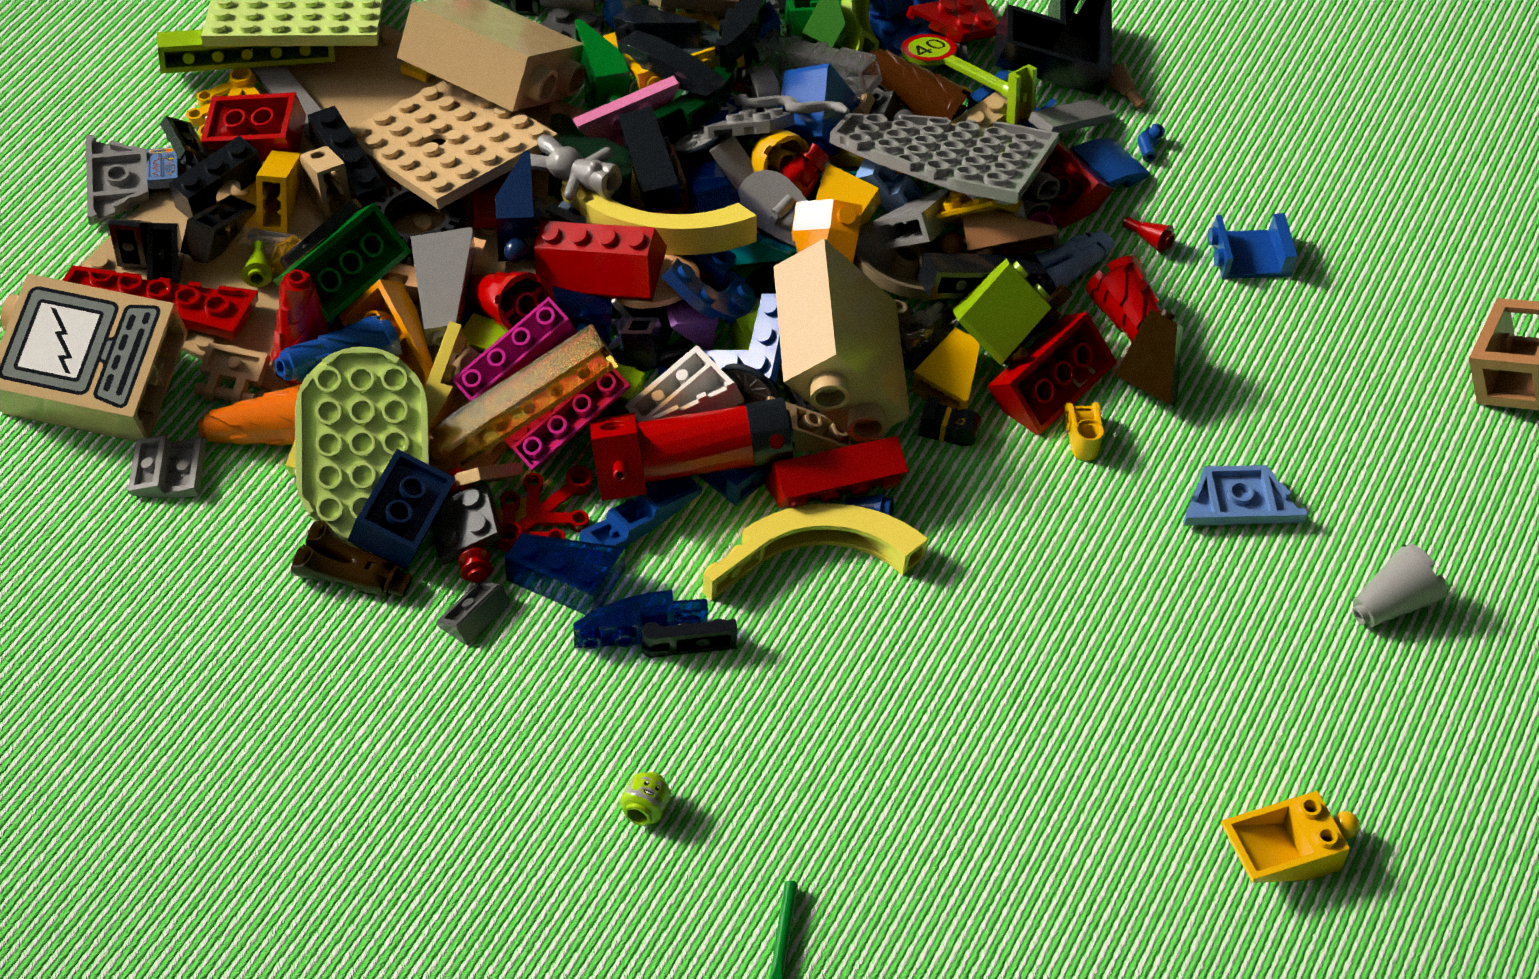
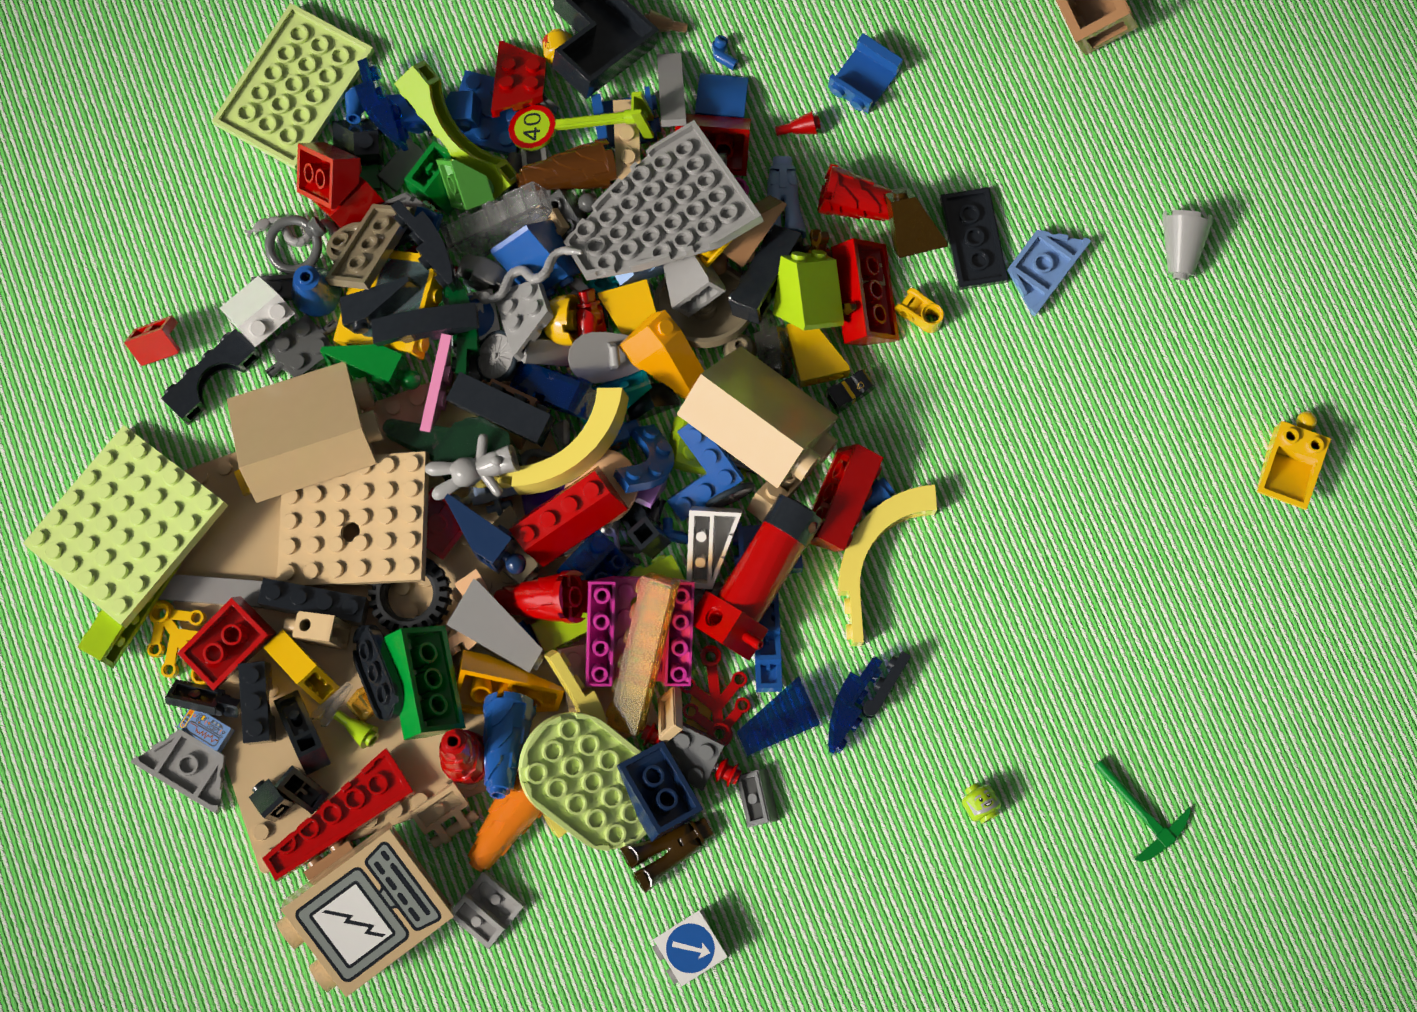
camera: 45 degrees left, 25 degrees up
(266, 645) = (689, 949): none -> piece
(1201, 429) = (973, 238): none -> black tile

